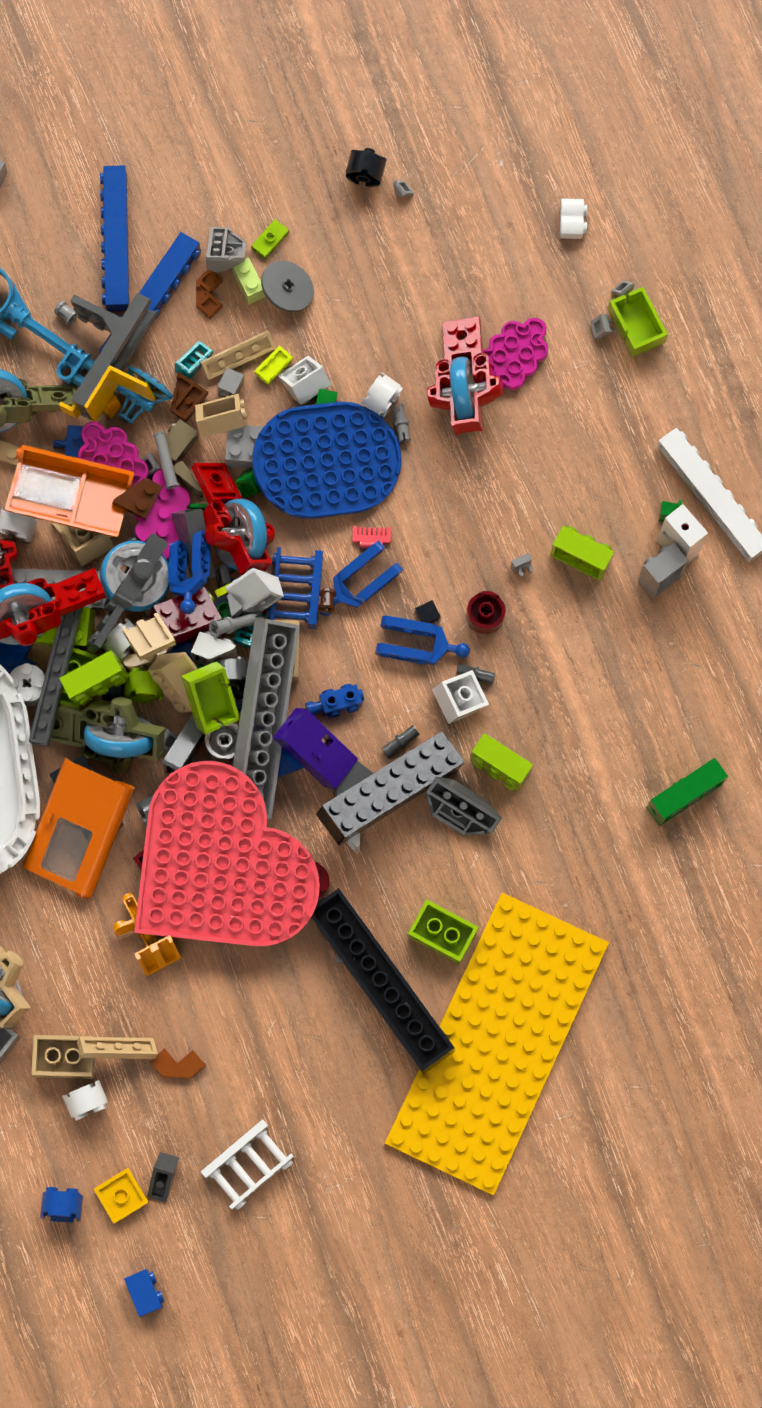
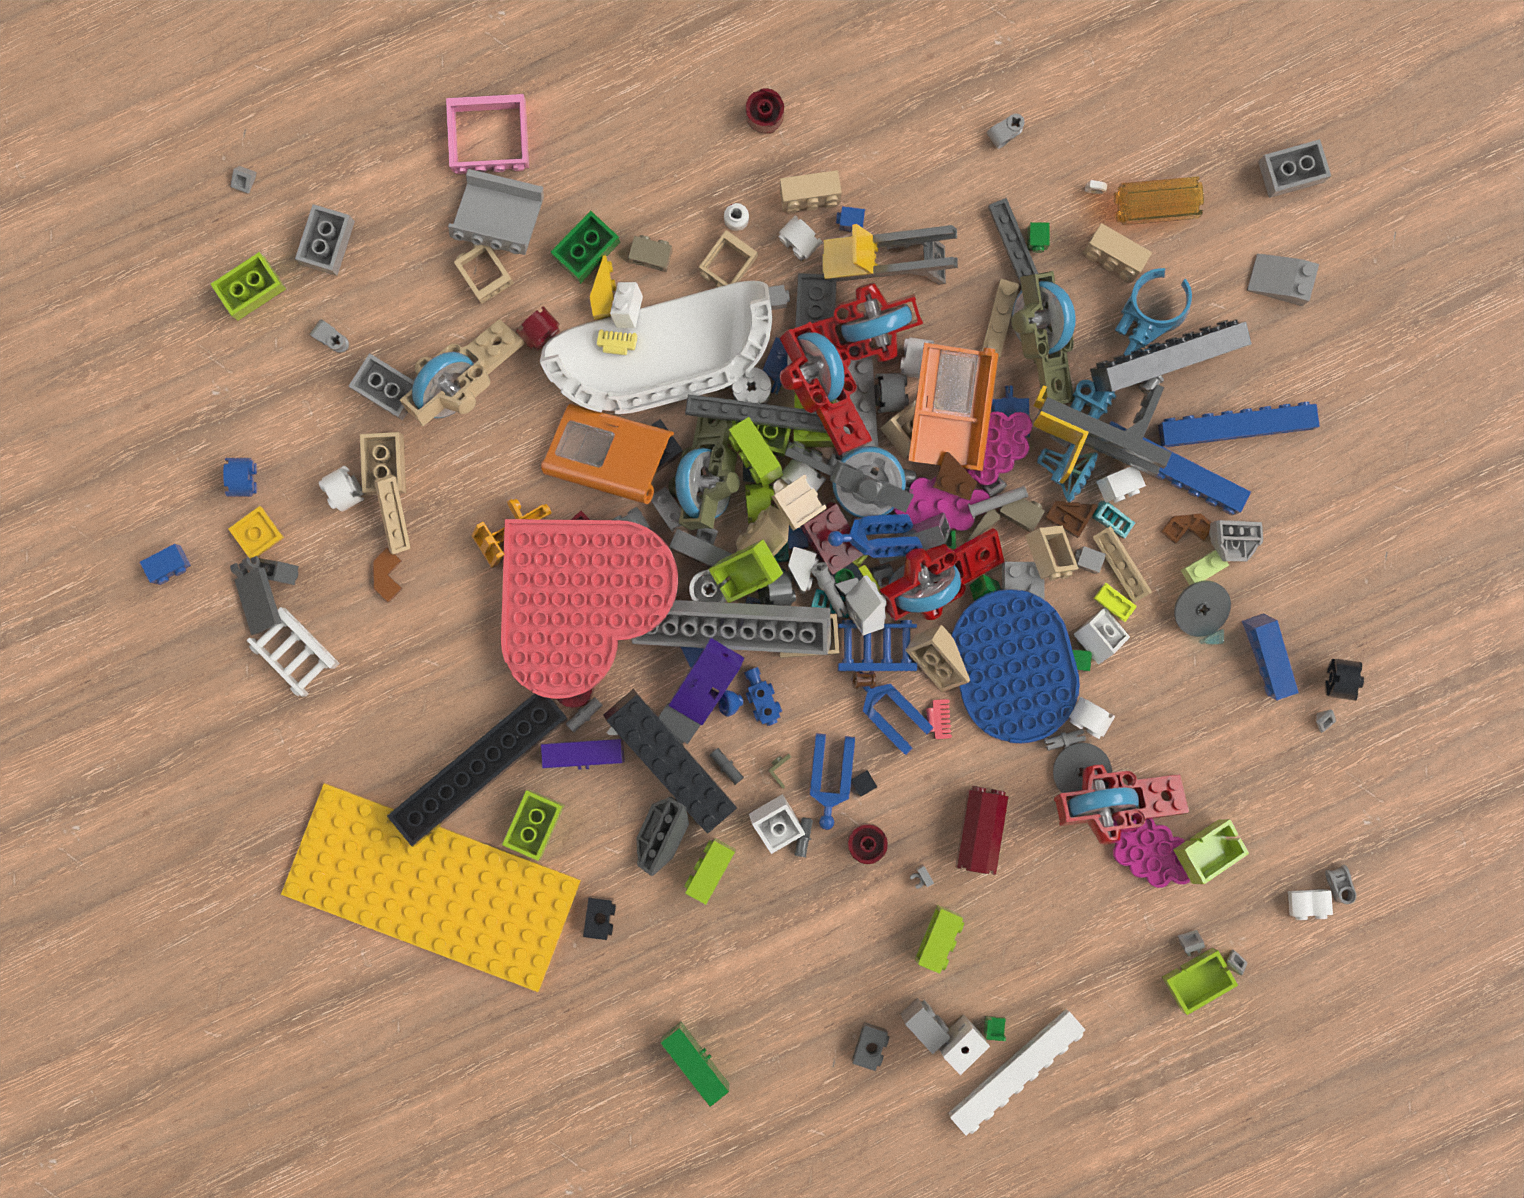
camera: 85 degrees right, 10 degrees up
(43, 289) = (1170, 355): none -> brick
(47, 551) = (891, 392): none -> dark grey brick
(112, 407) = (1052, 441): light orange tile -> none
(141, 774) = (667, 508): none -> light grey hinge
(161, 347) = (1121, 483): none -> white brick
(186, 1197) = (255, 595): none -> dark grey tile
(270, 239) = (1255, 585): lime plate -> none
(312, 529) = (939, 658): none -> tan slope
(316, 277) = (1214, 638): none -> clear light blue slope
(337, 229) = (1271, 656): none -> blue wedge
(337, 876) = (584, 714): none -> light grey pin
(340, 731) = (730, 703): none -> blue brick
(376, 876) = (582, 753): none -> dark purple brick
(401, 691) = (777, 763): none -> olive bracket
(420, 418) = (1071, 759): none -> dark grey piece
(481, 504) = (982, 830): none -> dark red brick
(518, 301) = (1210, 851): none -> lime piece
(548, 884) = (594, 929): none -> black brick
(556, 189) = (1341, 883): none -> light grey piece
(670, 630) = (870, 1034): none -> dark grey brick

